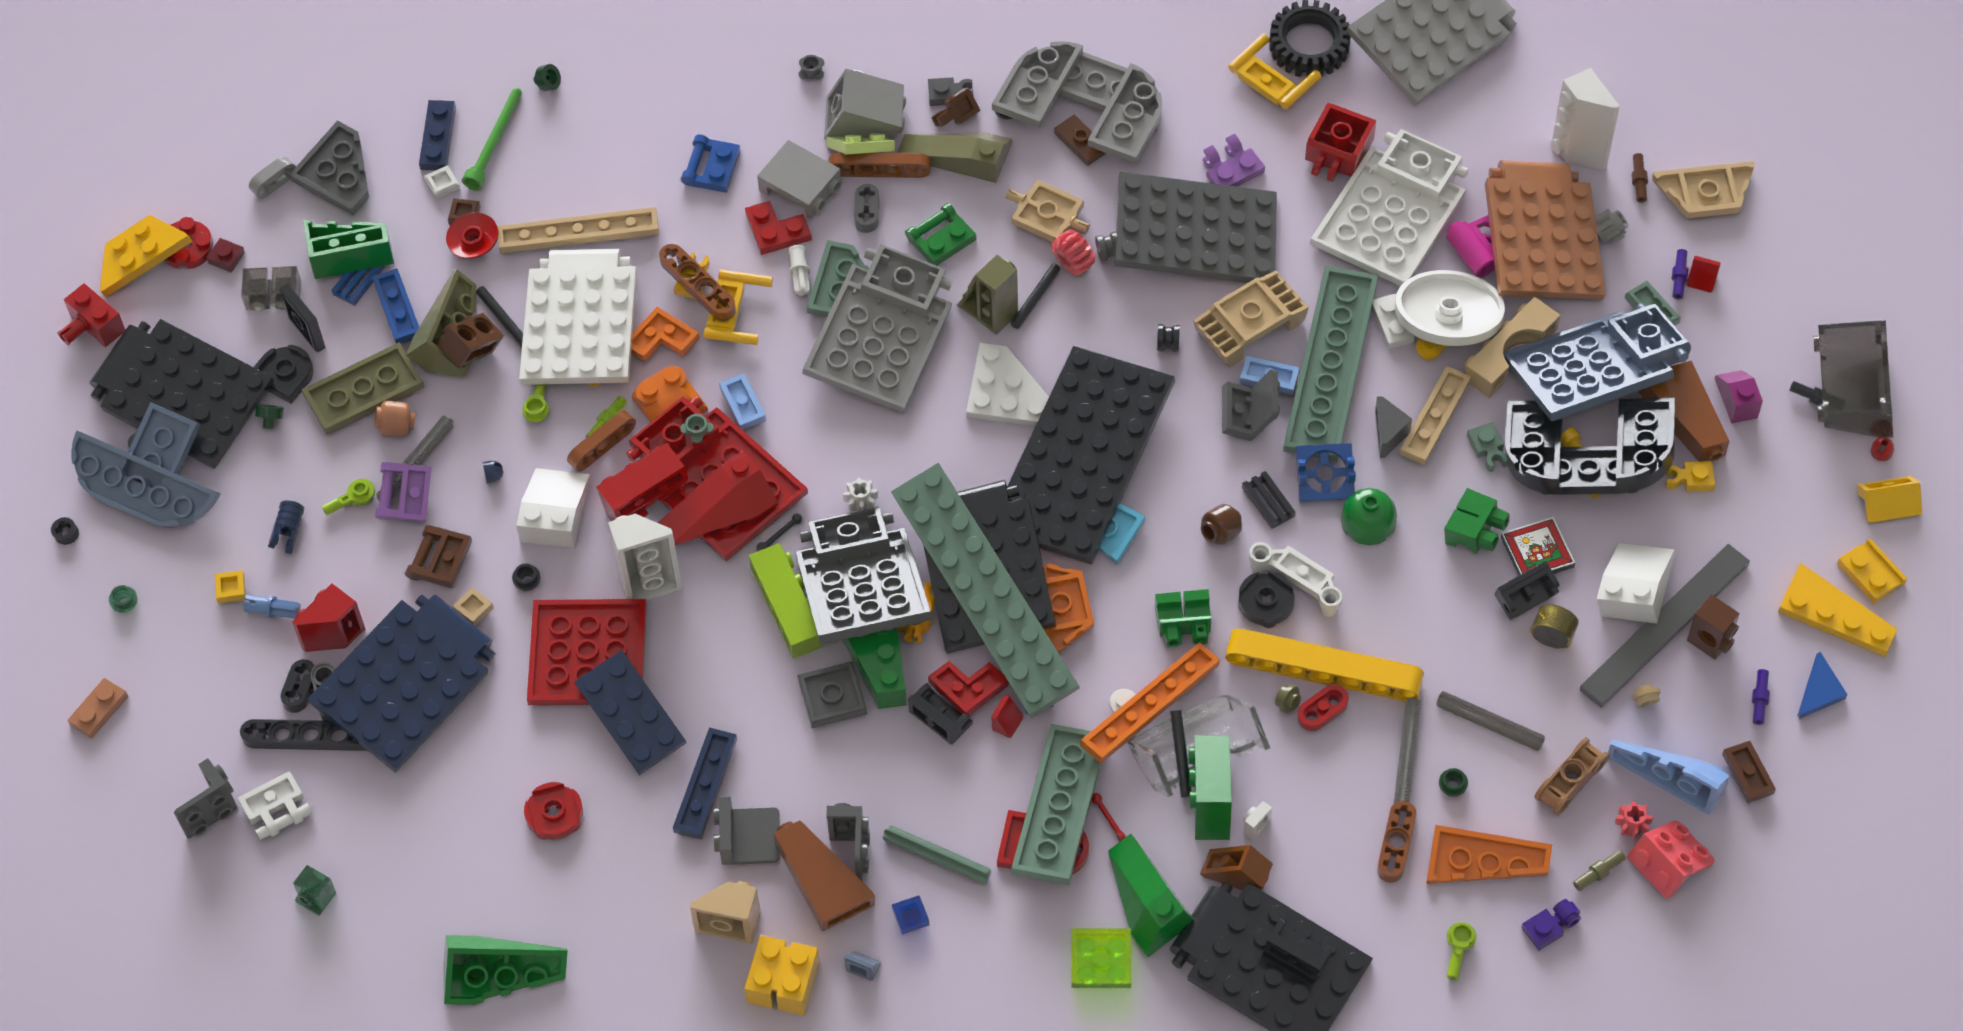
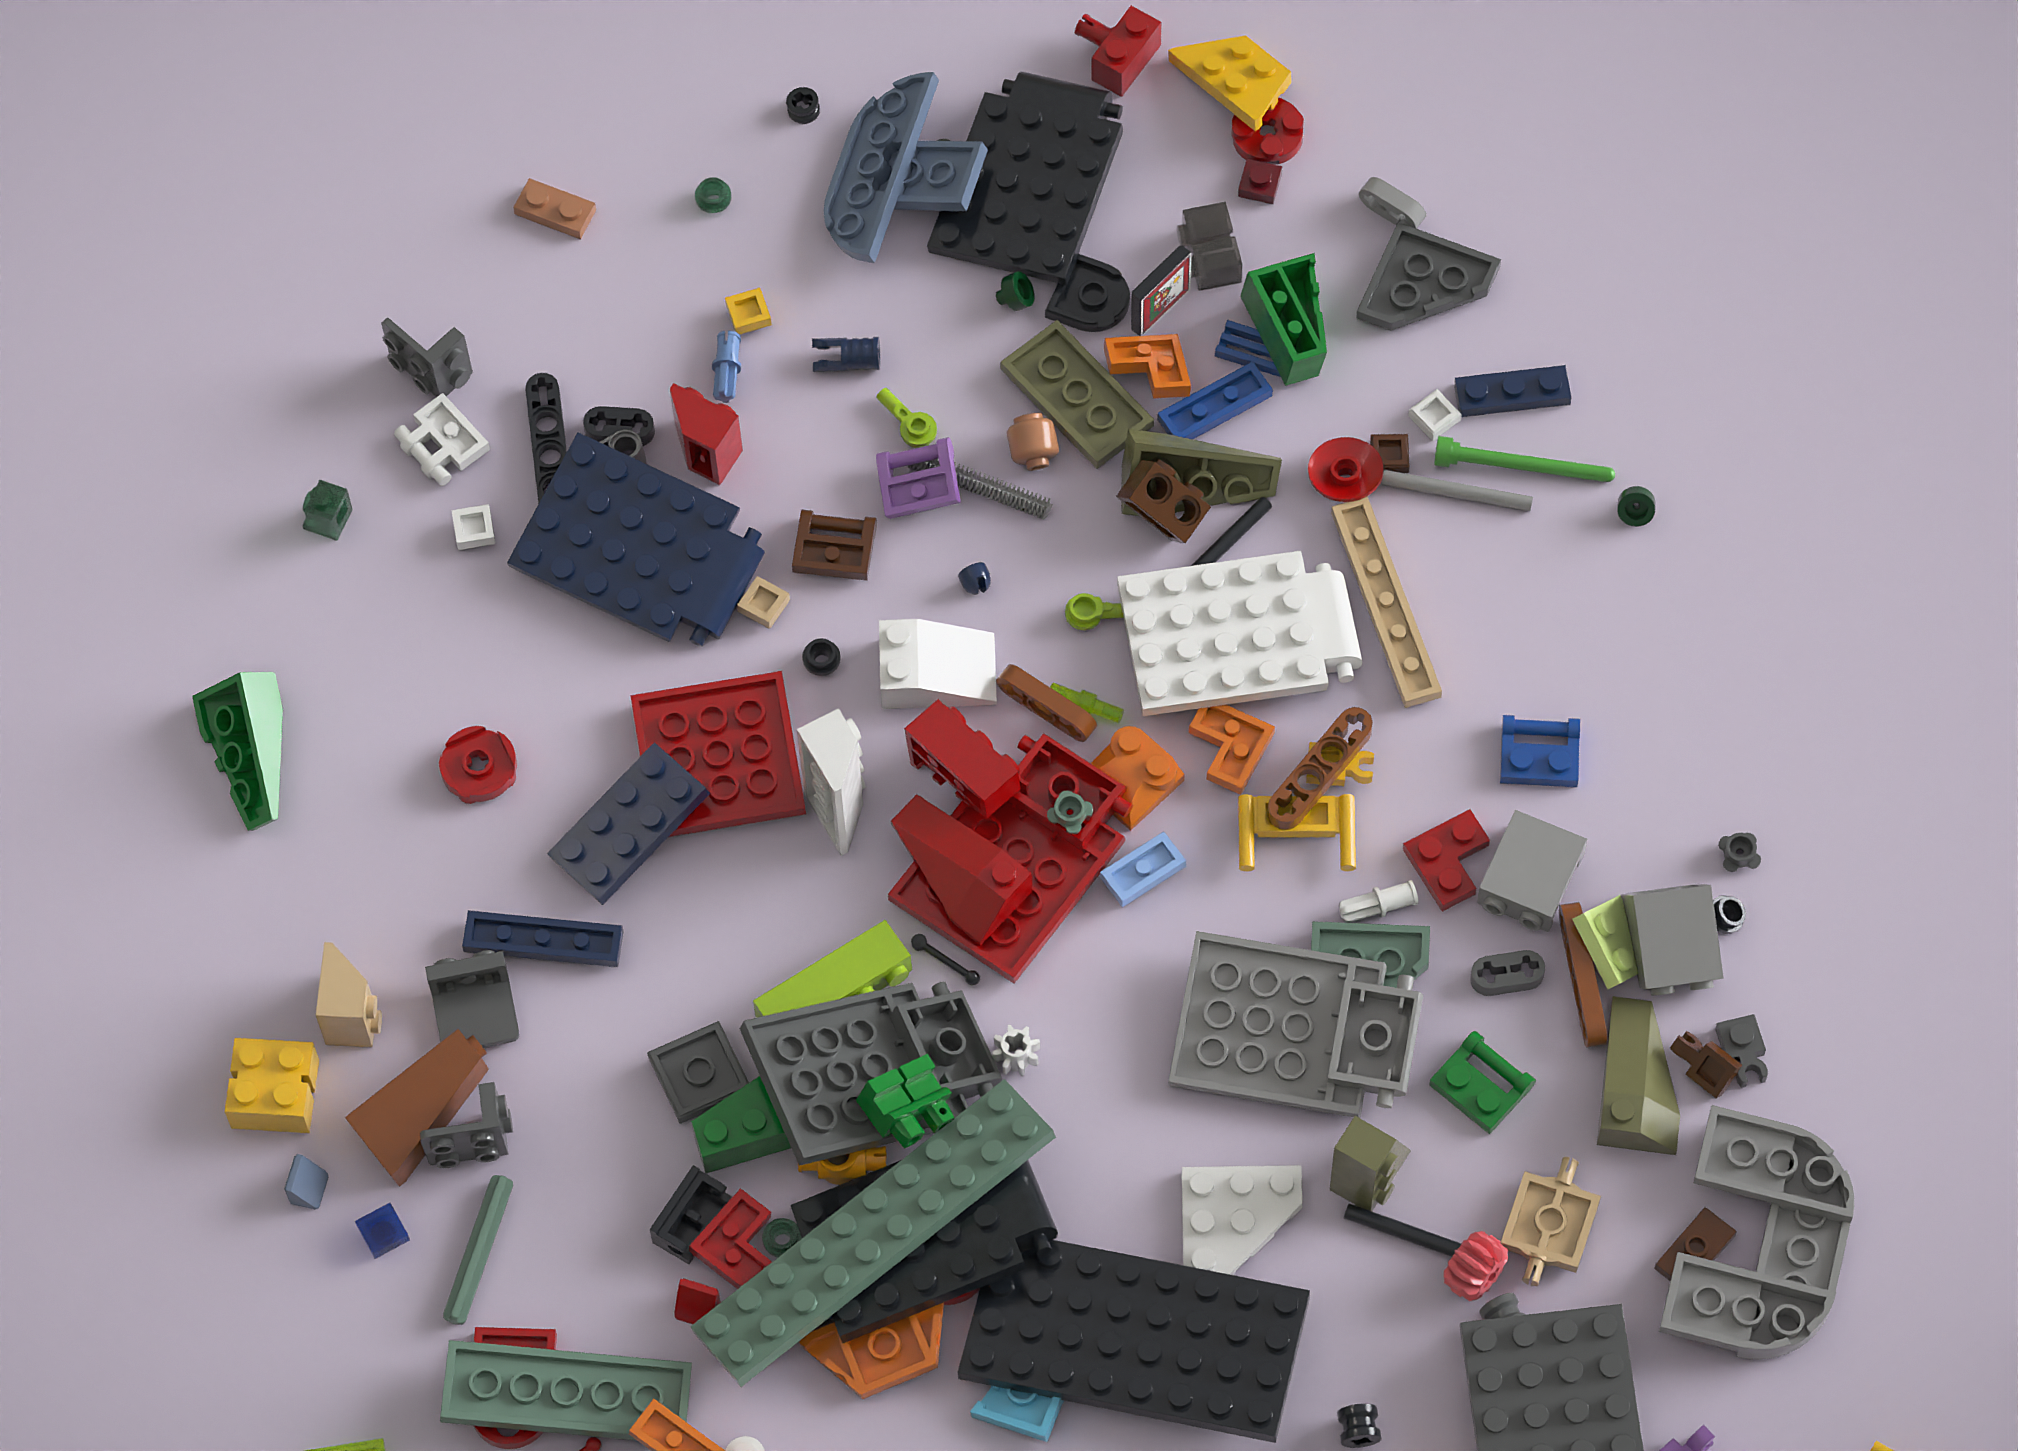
camera: 80 degrees right, 5 degrees up
(350, 332) = (1154, 354): none -> orange plate
(356, 791) = (473, 527): none -> white plate
(505, 175) = (1457, 490): none -> light grey bar
(896, 550) = (904, 1098): none -> green hips
(967, 652) = (776, 1228): none -> clear green plate

